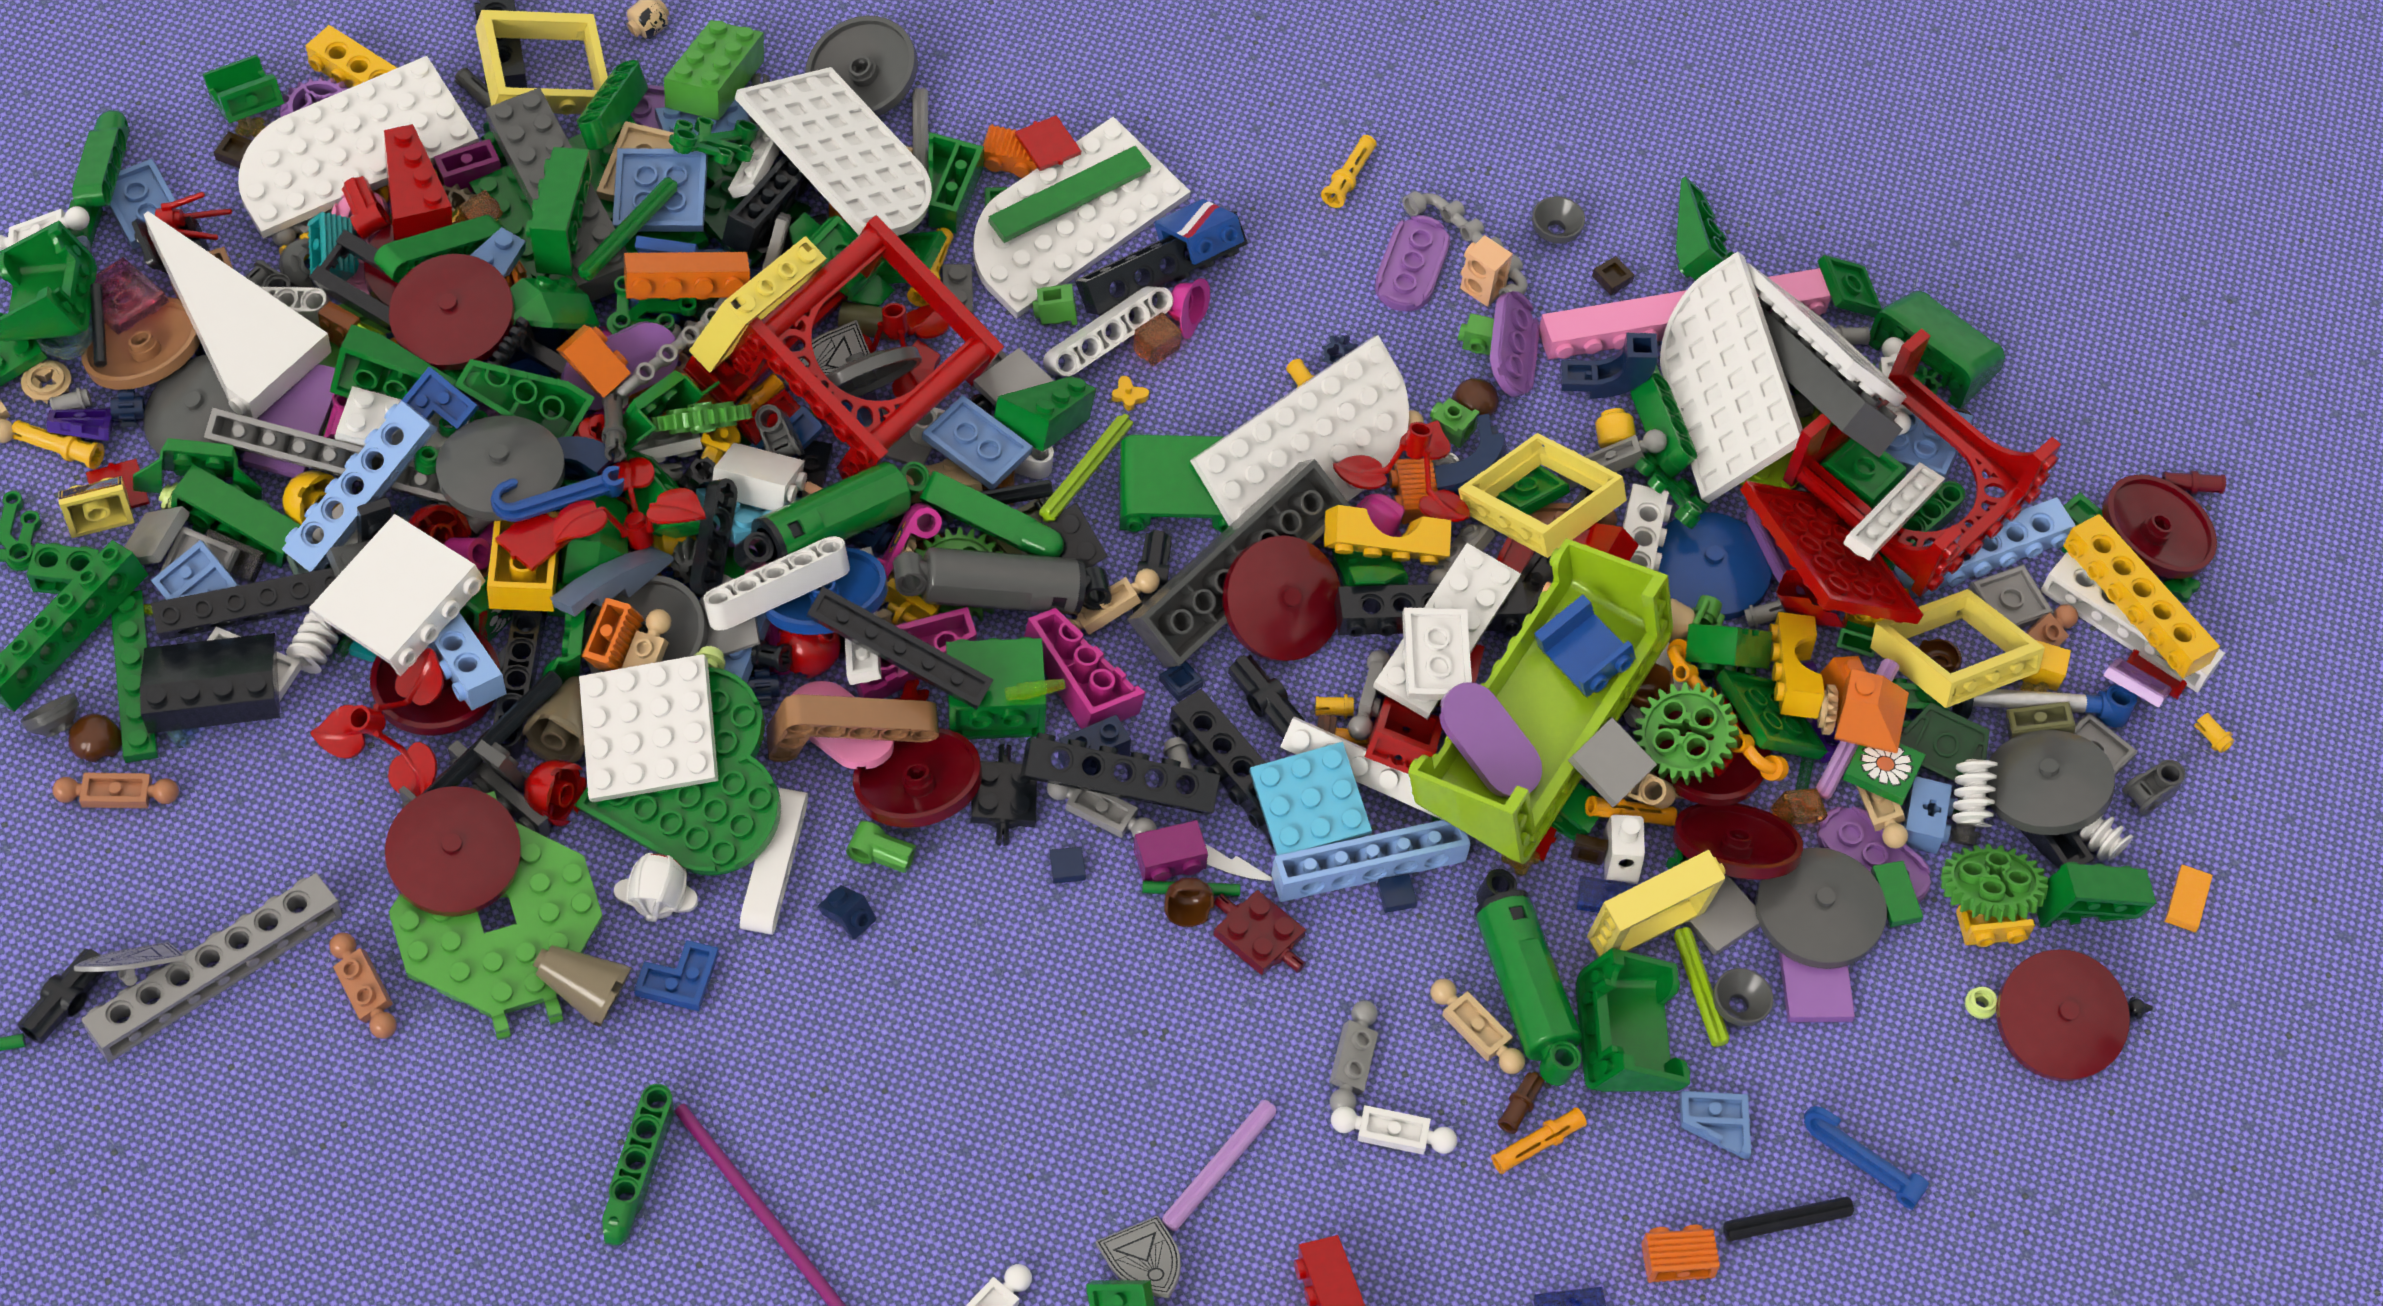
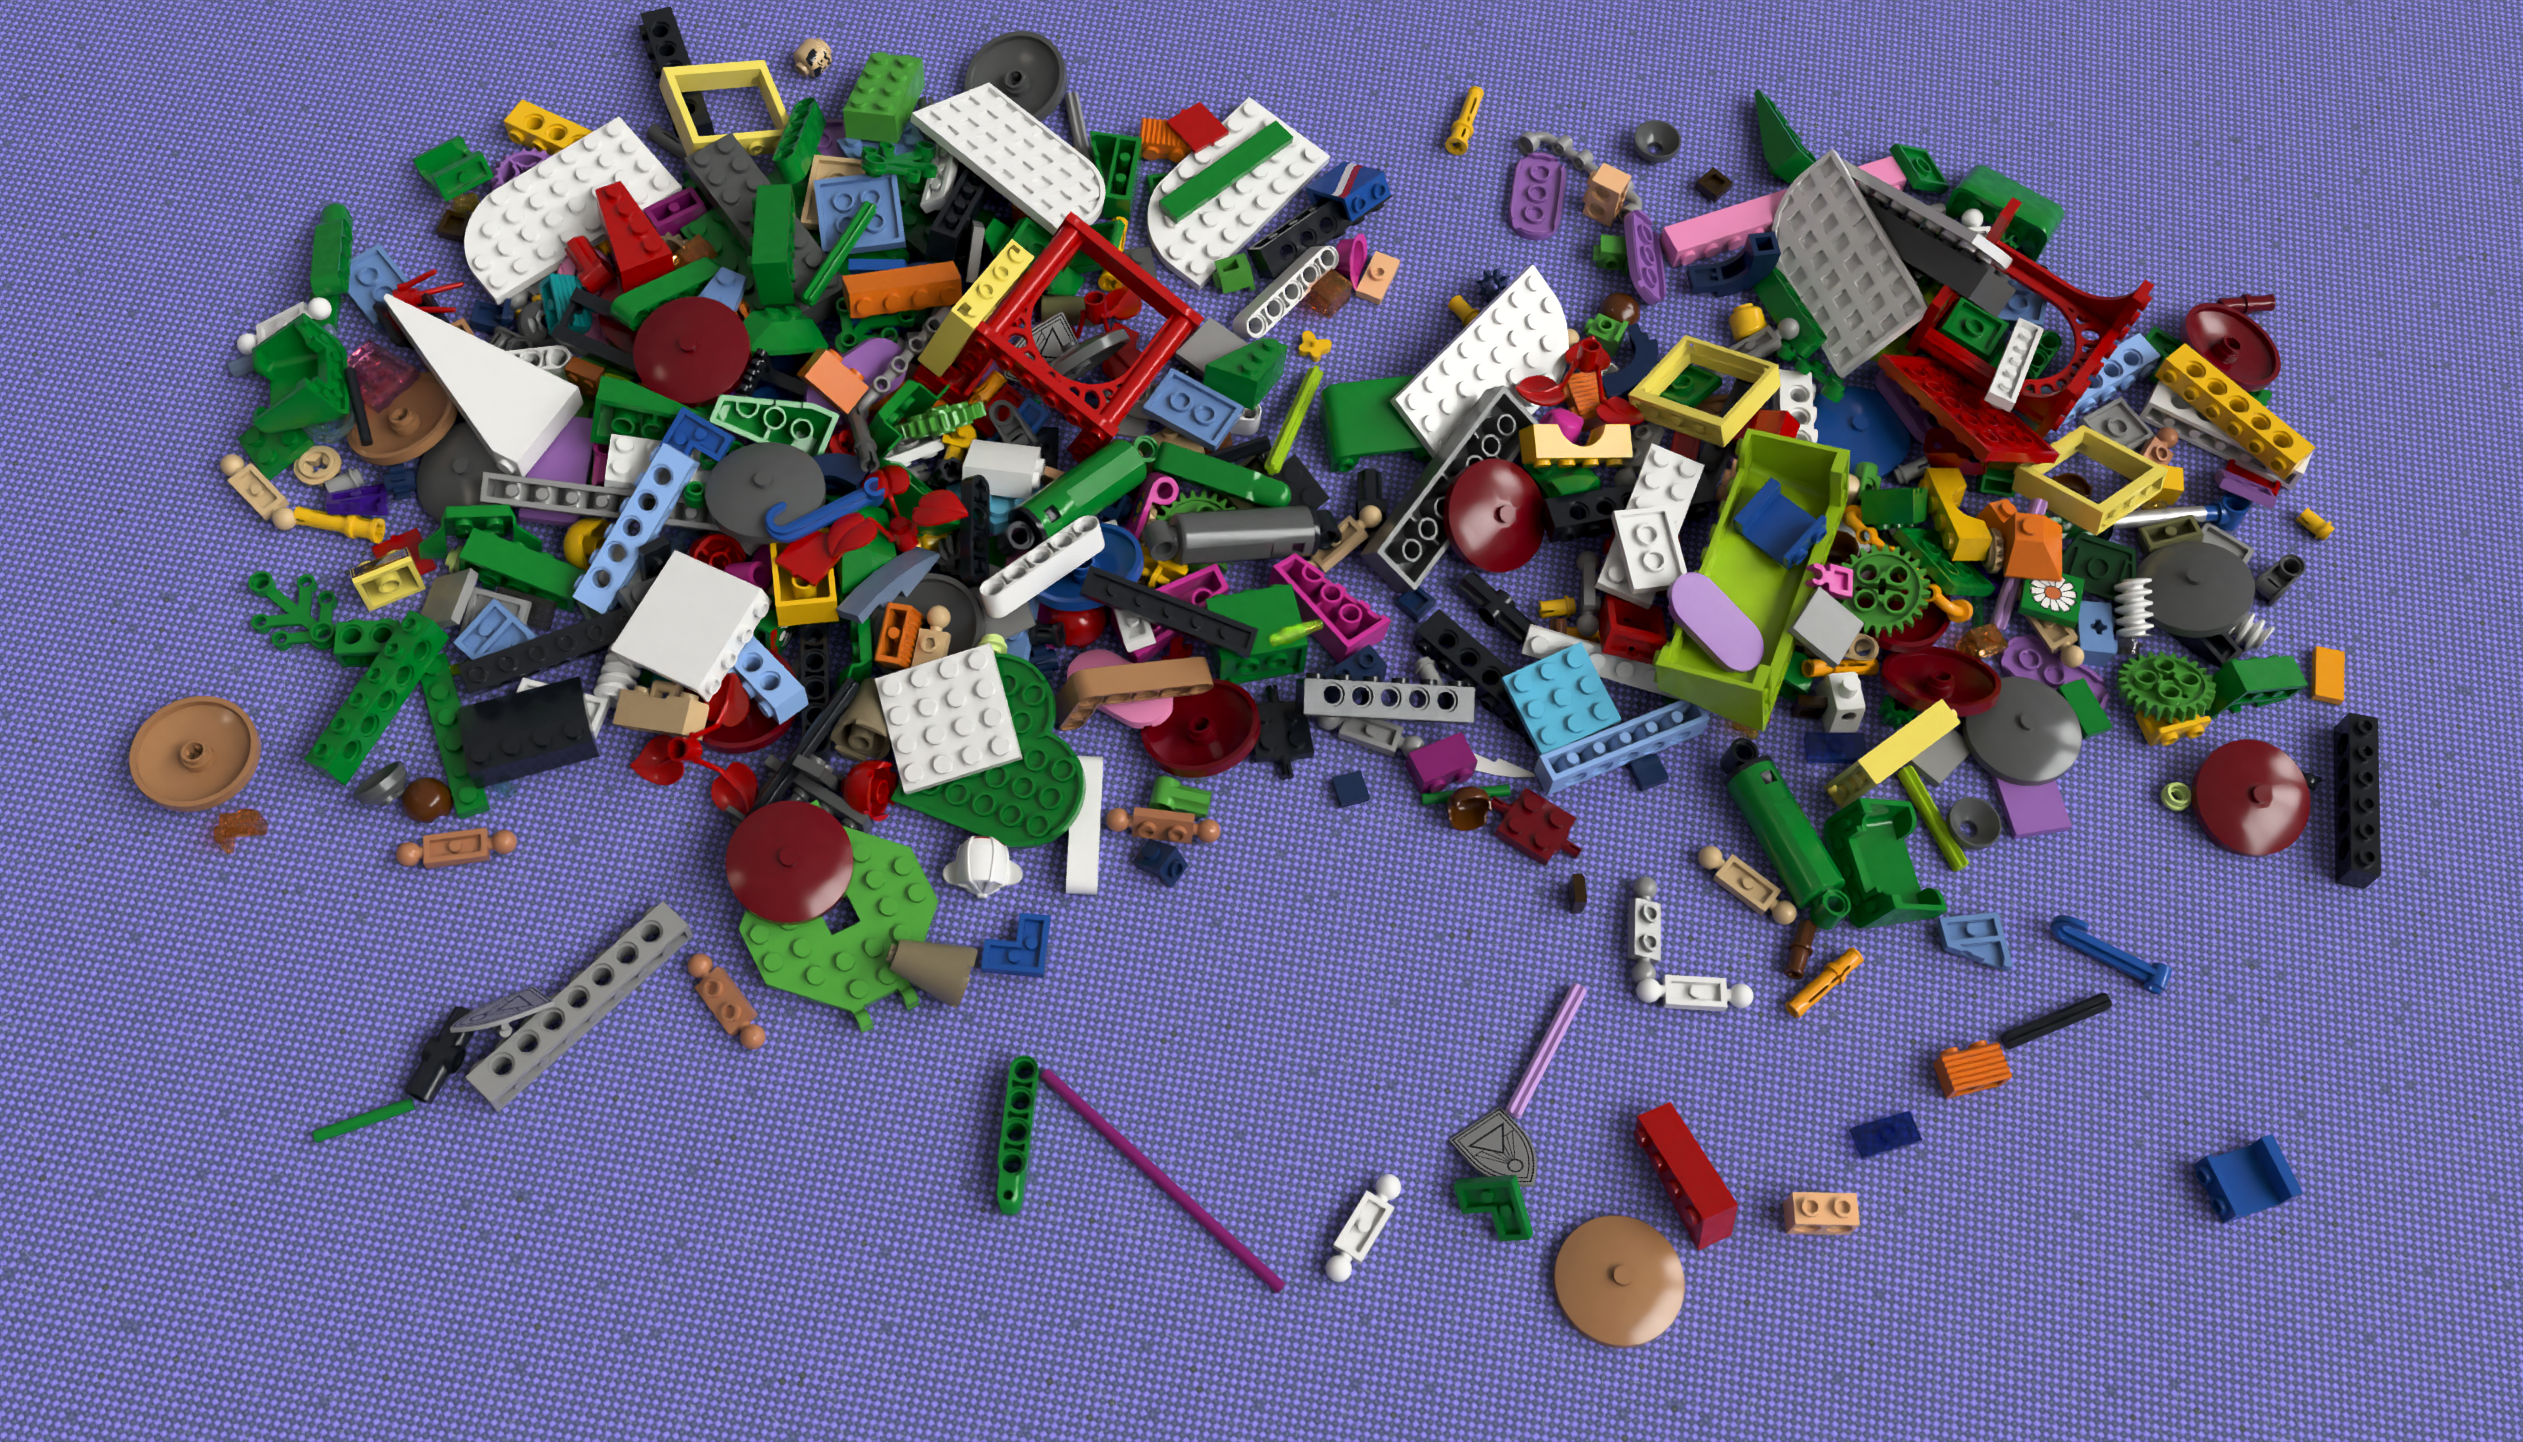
camera: 10 degrees left, 5 degrees up
(251, 248) = (488, 316): none -> dark blue bracket
(340, 680) = (650, 713): none -> tan piece
(857, 872) = (1163, 825): none -> nougat plate
(1215, 329) = (1377, 277): none -> light nougat plate
(1288, 1008) = (1577, 893): none -> dark brown tile
(1632, 713) = (1833, 578): none -> dark pink plate
(2184, 1036) = (2357, 801): none -> black brick

